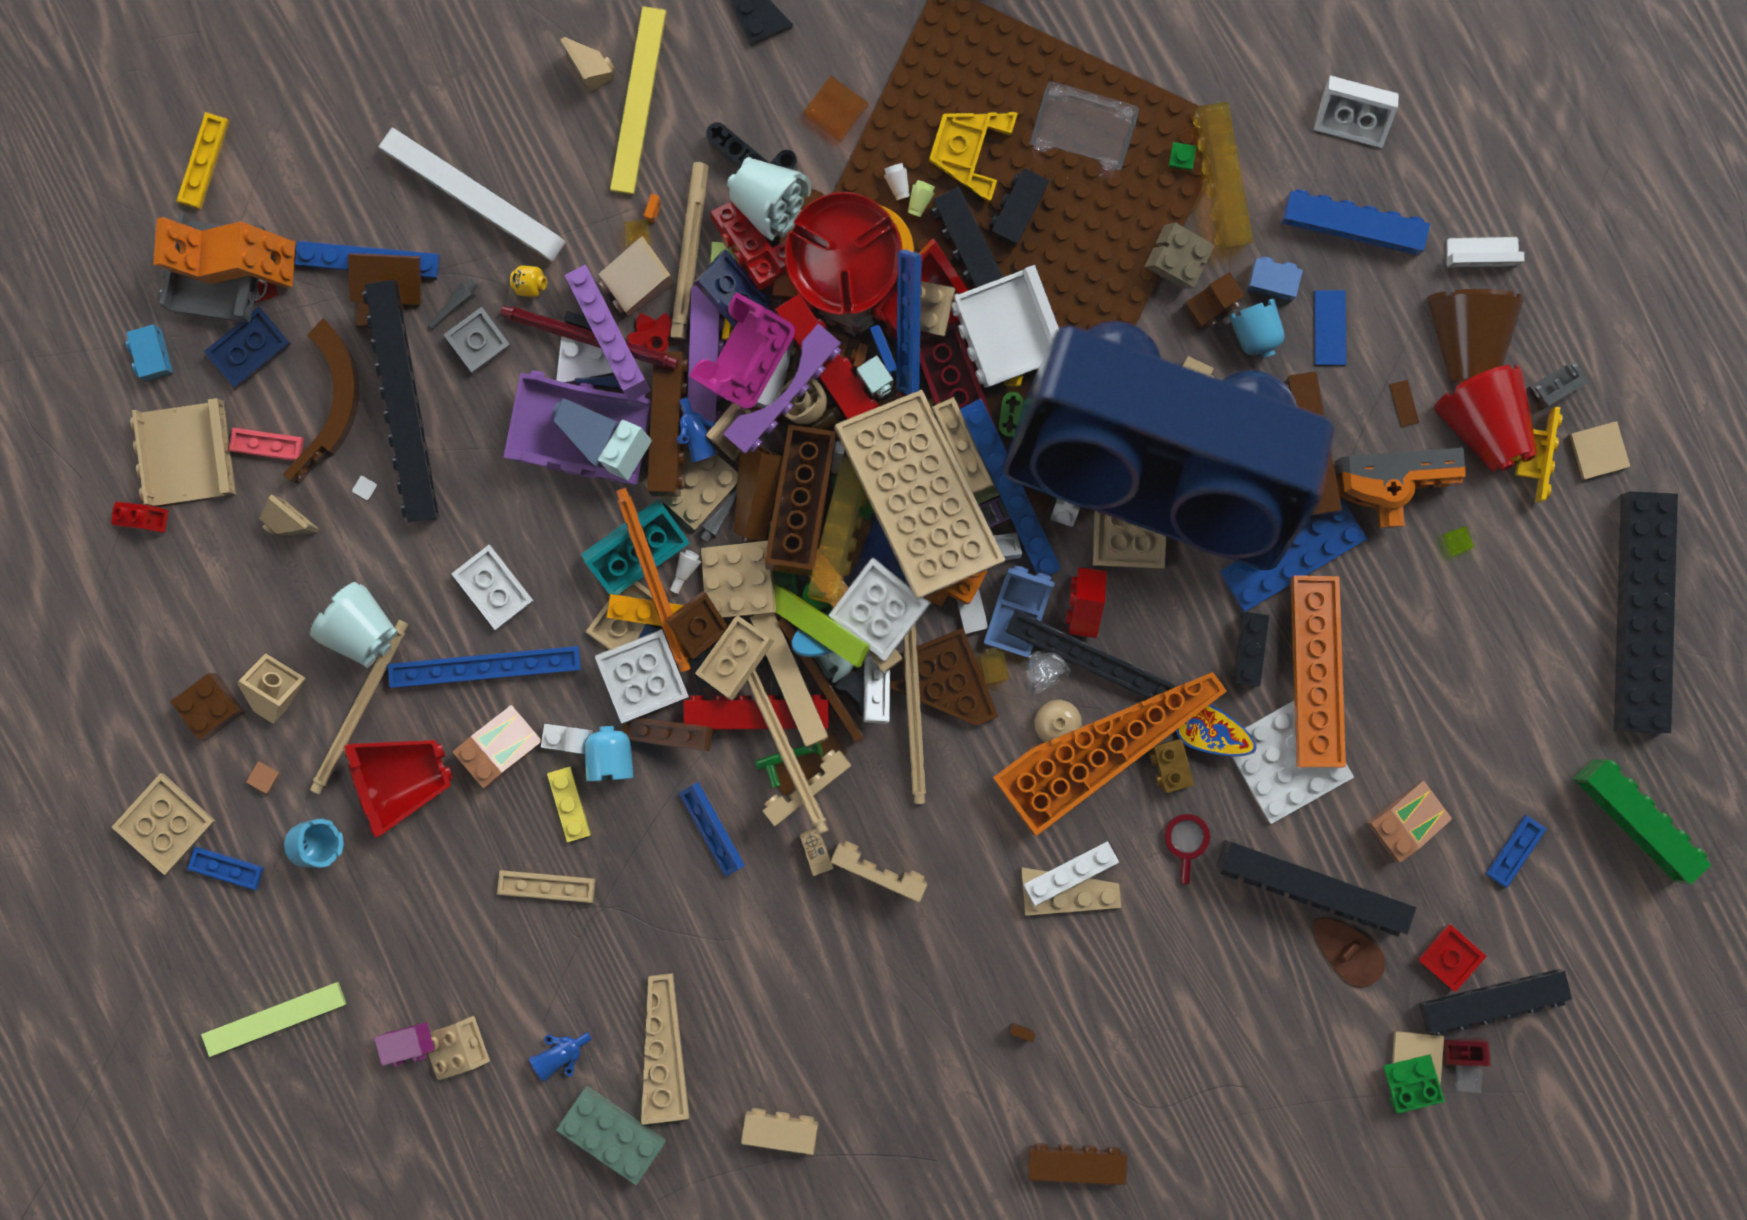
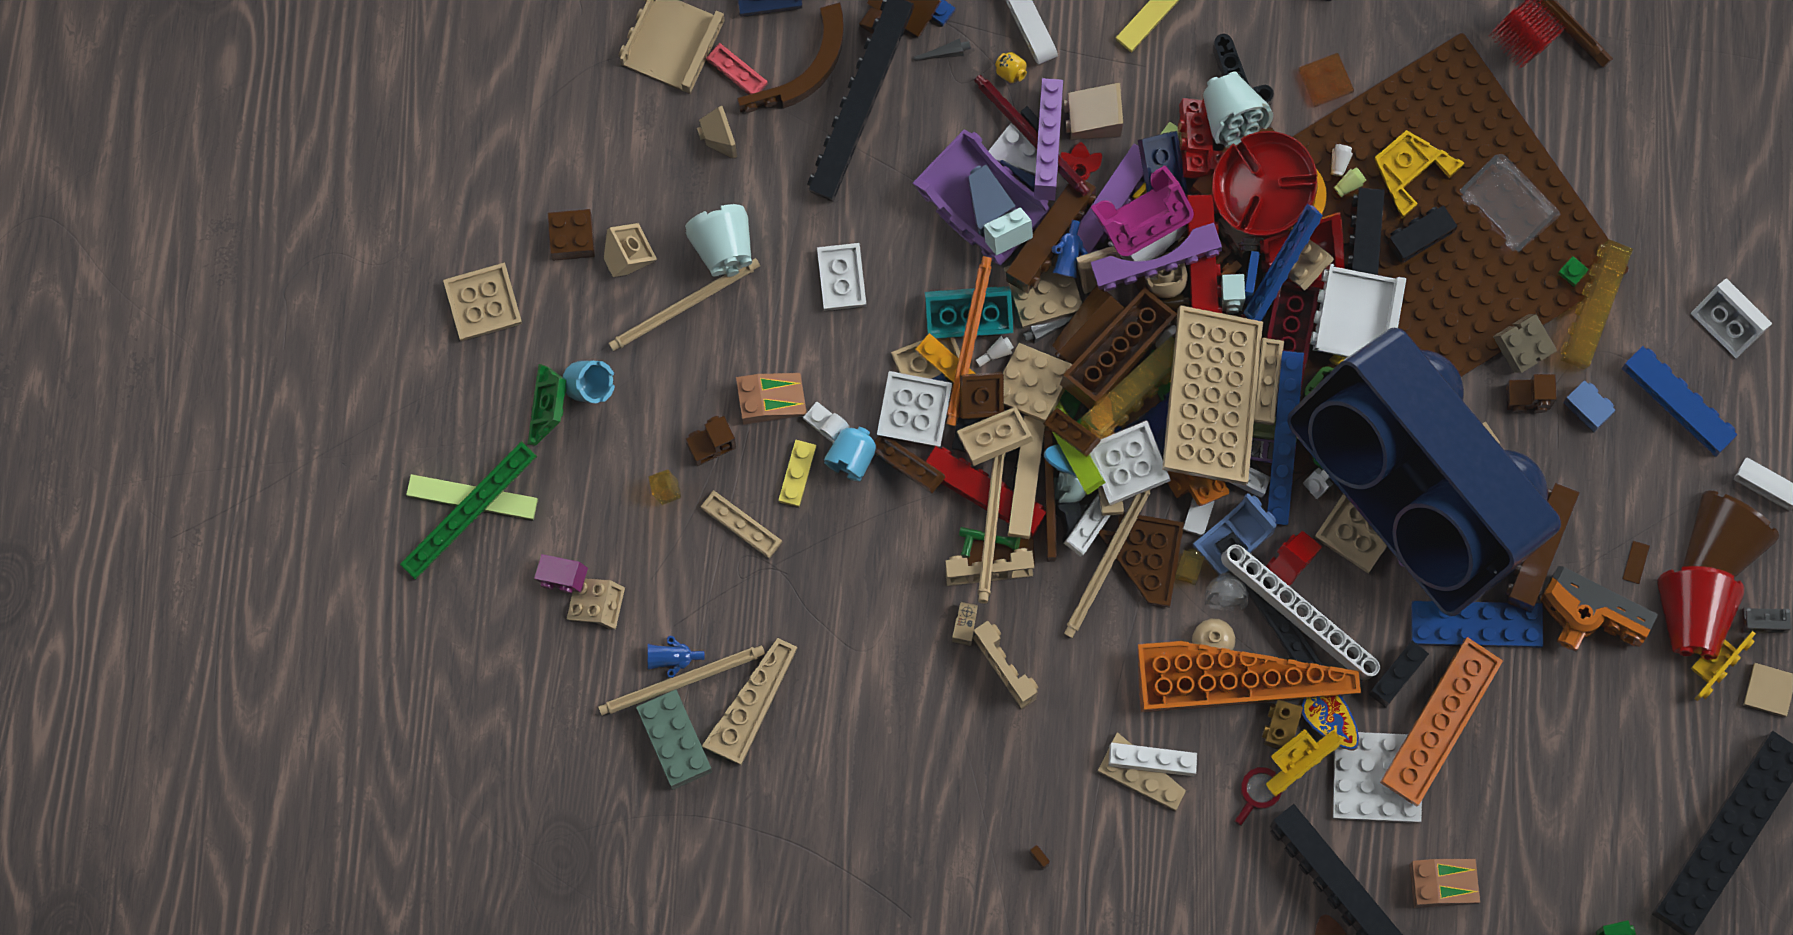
camera: 30 degrees right, 10 degrees down
(139, 516) = (610, 65): red bracket -> none
(225, 868) = (507, 363): blue tile -> none
(263, 777) = (578, 313): nougat tile -> none
(278, 1036) = (468, 510): none -> green tile
(287, 886) = (547, 404): none -> green wing
(364, 487) = (790, 146): white sticker -> none
(395, 778) = (679, 370): red cone -> none
(451, 898) = (664, 487): none -> clear yellow brick
(468, 826) = (711, 442): none -> reddish brown brick
(477, 340) = (945, 88): light grey plate -> none
(484, 666) = (798, 332): blue plate -> none
(582, 1072) = (681, 680): none -> tan piece
(637, 229) = (1117, 76): clear yellow plate -> none
(652, 208) = (1139, 70): orange tile -> none
(689, 250) = (1149, 116): tan piece -> none
(711, 829) = (895, 557): blue plate -> none
(780, 1131) = (805, 817): tan brick -> none
(806, 611) = (1071, 432): none -> reddish brown tile
(1114, 653) = (1289, 610): none -> white beam
(1209, 790) = (1300, 756): none -> yellow bracket
(1259, 329) = (1553, 434): medium azure cylinder -> none
(1330, 327) = (1612, 470): blue piece -> none
(1458, 540) = (1615, 691): clear neon green tile -> none

